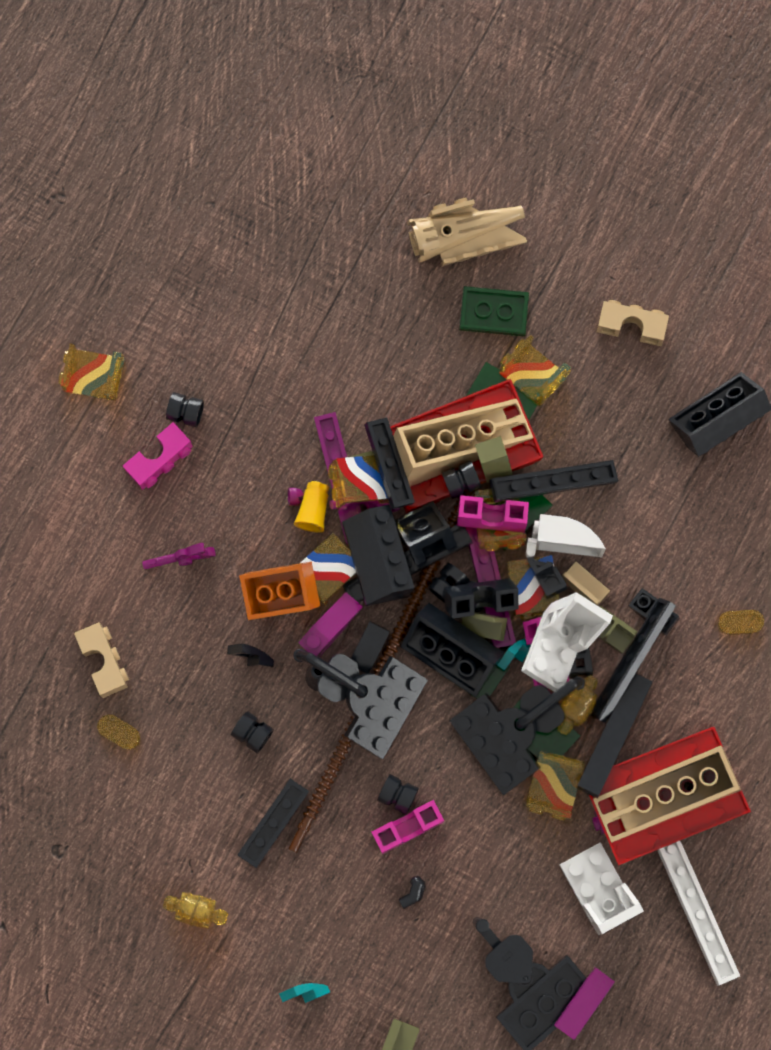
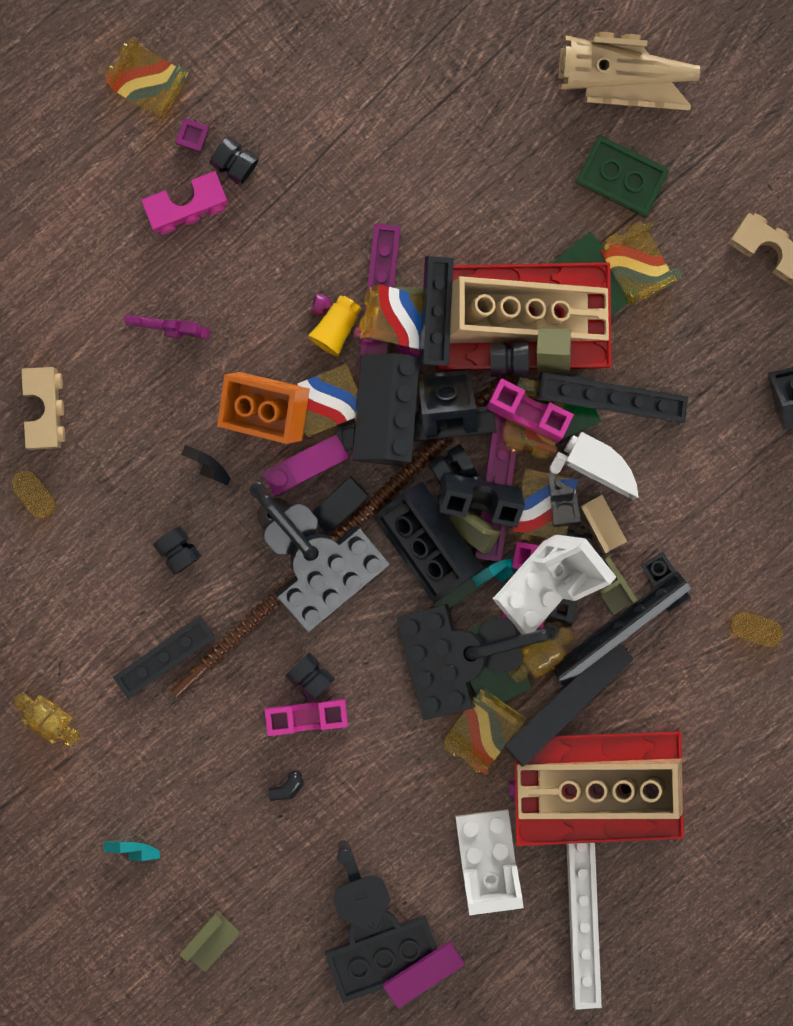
camera: 15 degrees right, 10 degrees up
(144, 402) = (192, 135): none -> magenta plate

